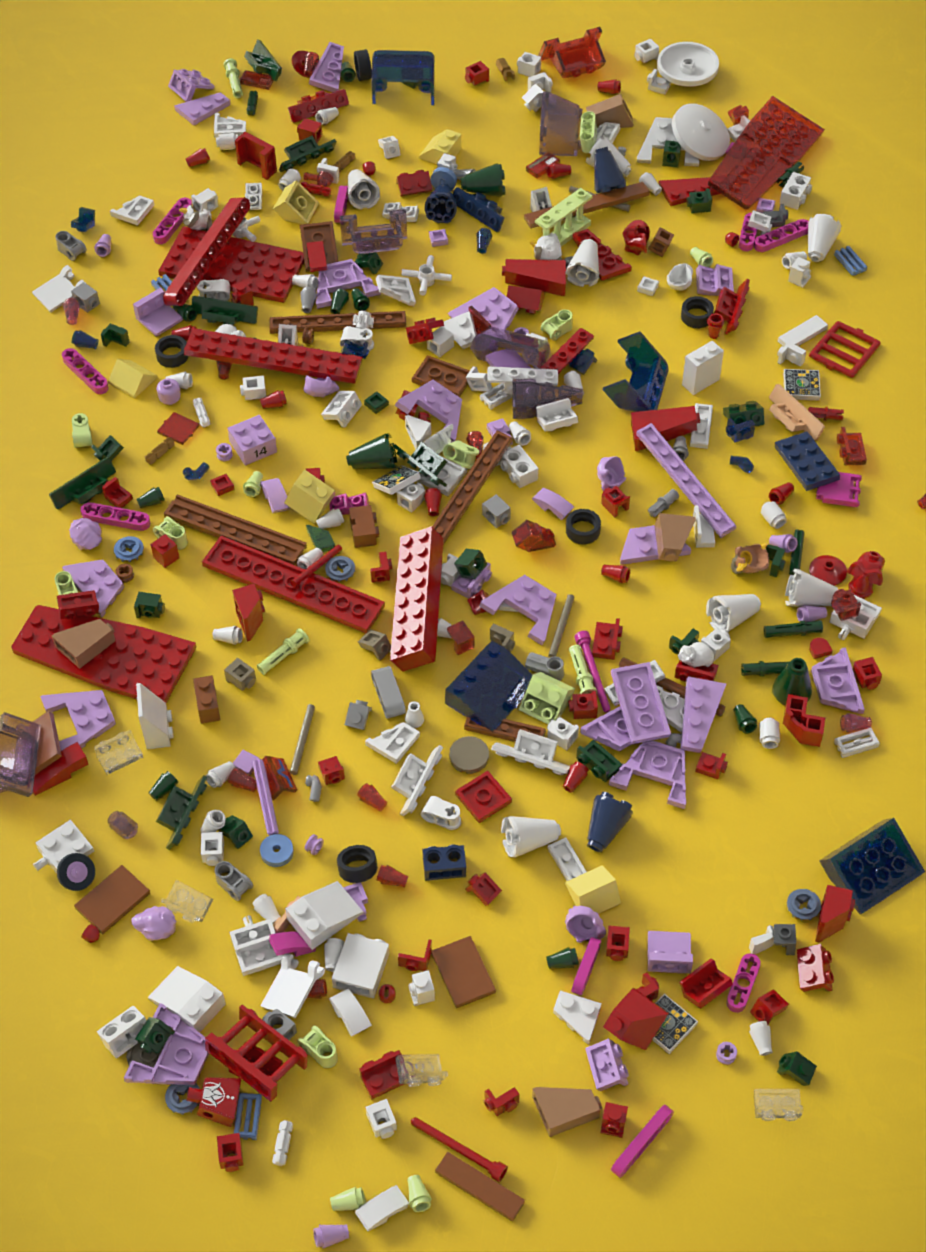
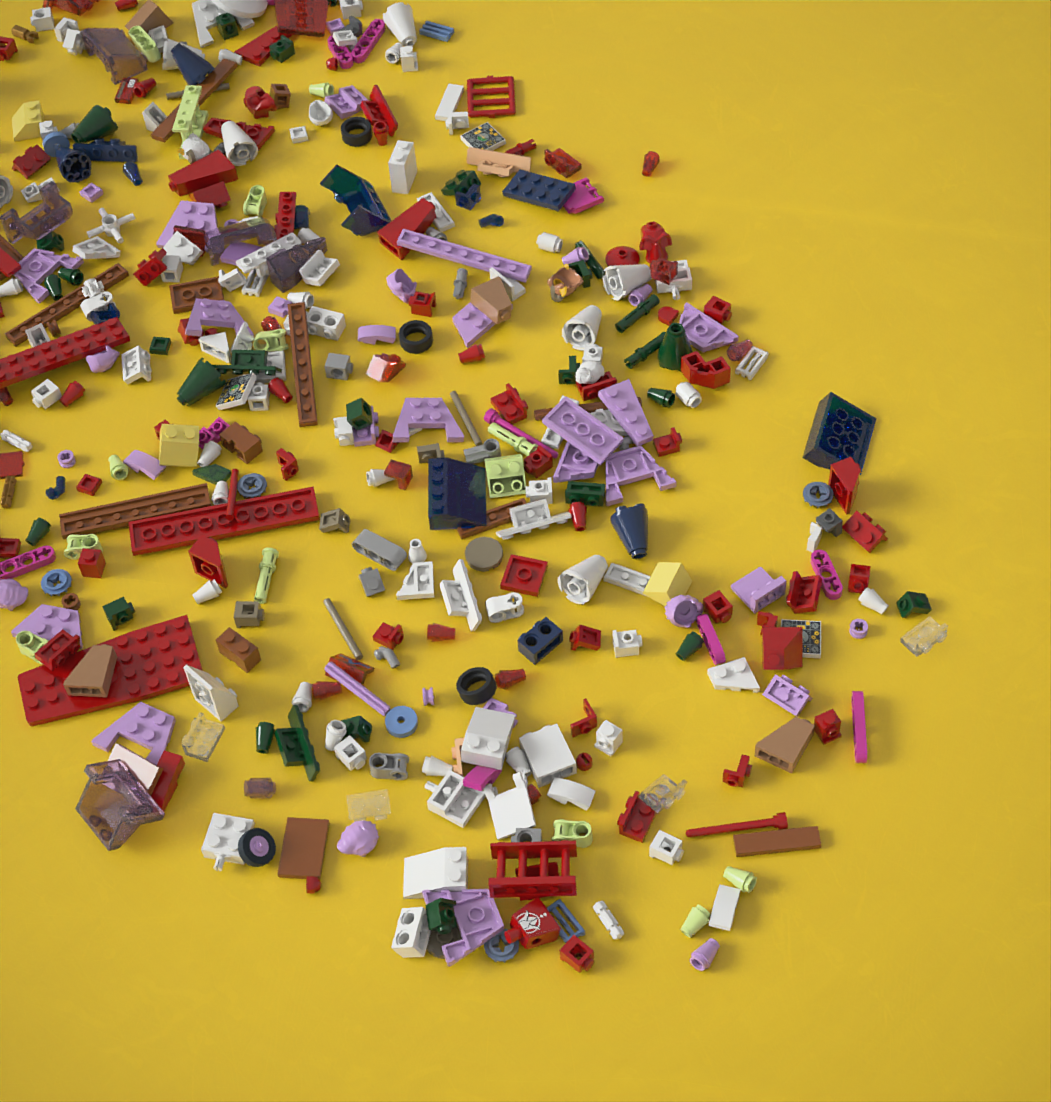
camera: 35 degrees left, 0 degrees up
(245, 761) = (314, 674): lavender tile -> none
(252, 440) = (84, 434): lavender brick -> none
(308, 297) = (24, 299): light grey cone -> none
(417, 599) = (340, 466): brick -> none
(463, 972) = (625, 706): dark orange tile -> none
(512, 923) = (626, 643): none -> white brick
(519, 692) = (482, 483): axle -> none
(781, 493) = (540, 224): red cone -> none

